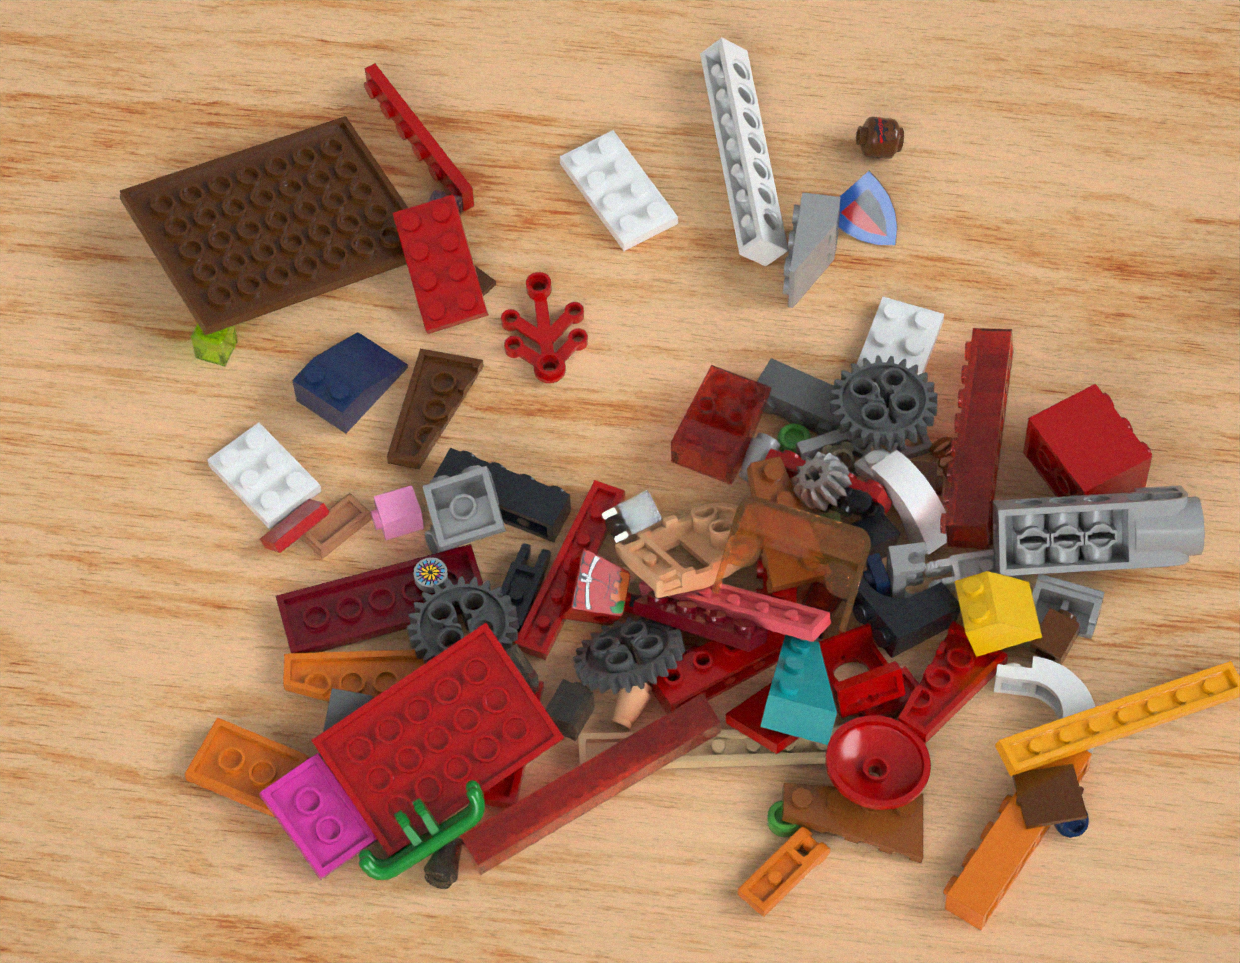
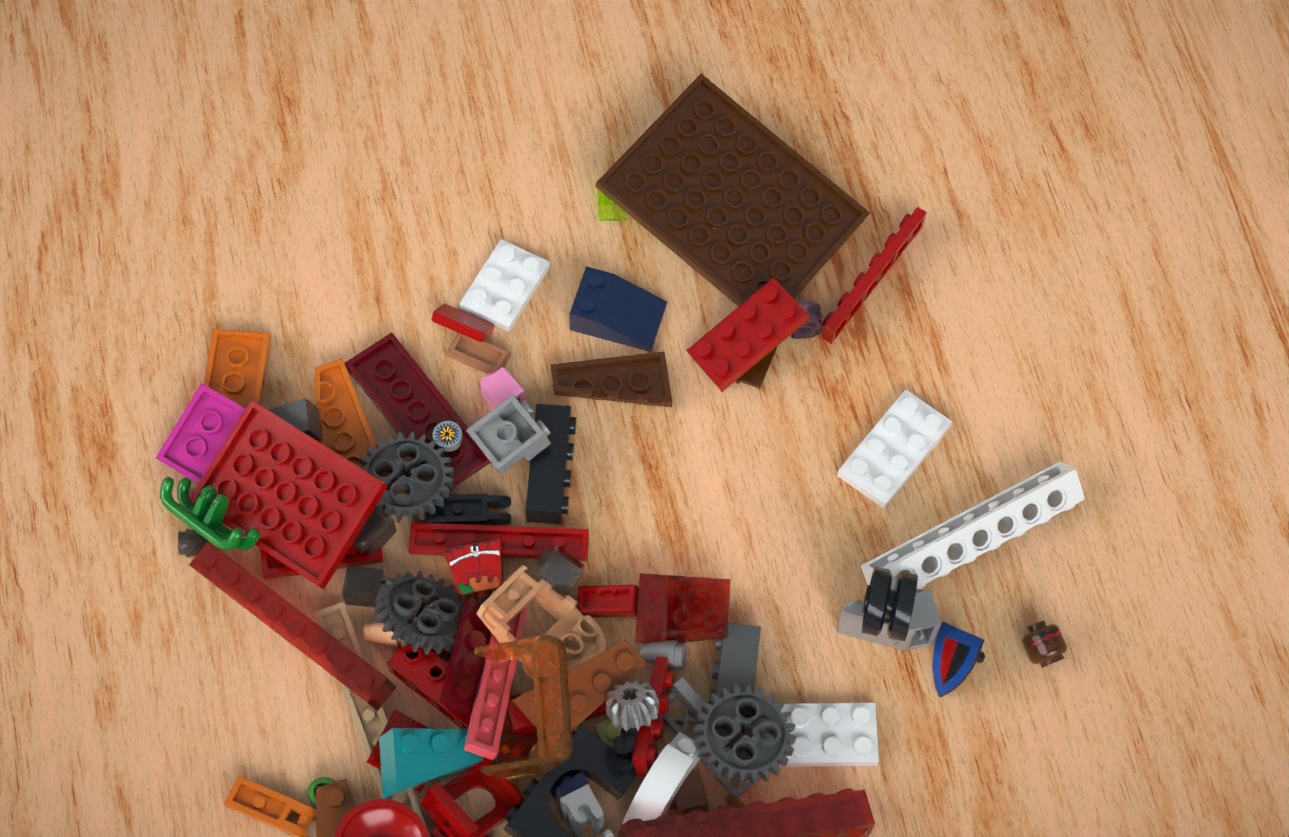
camera: 65 degrees right, 5 degrees up
(545, 334) = (724, 442): red plant -> none
(681, 487) = (608, 600): none -> red plate
(790, 435) = (698, 676): bright green tile -> none
(814, 218) = (883, 603): none -> black wheel
(844, 450) = (678, 721): dark tan plate -> none

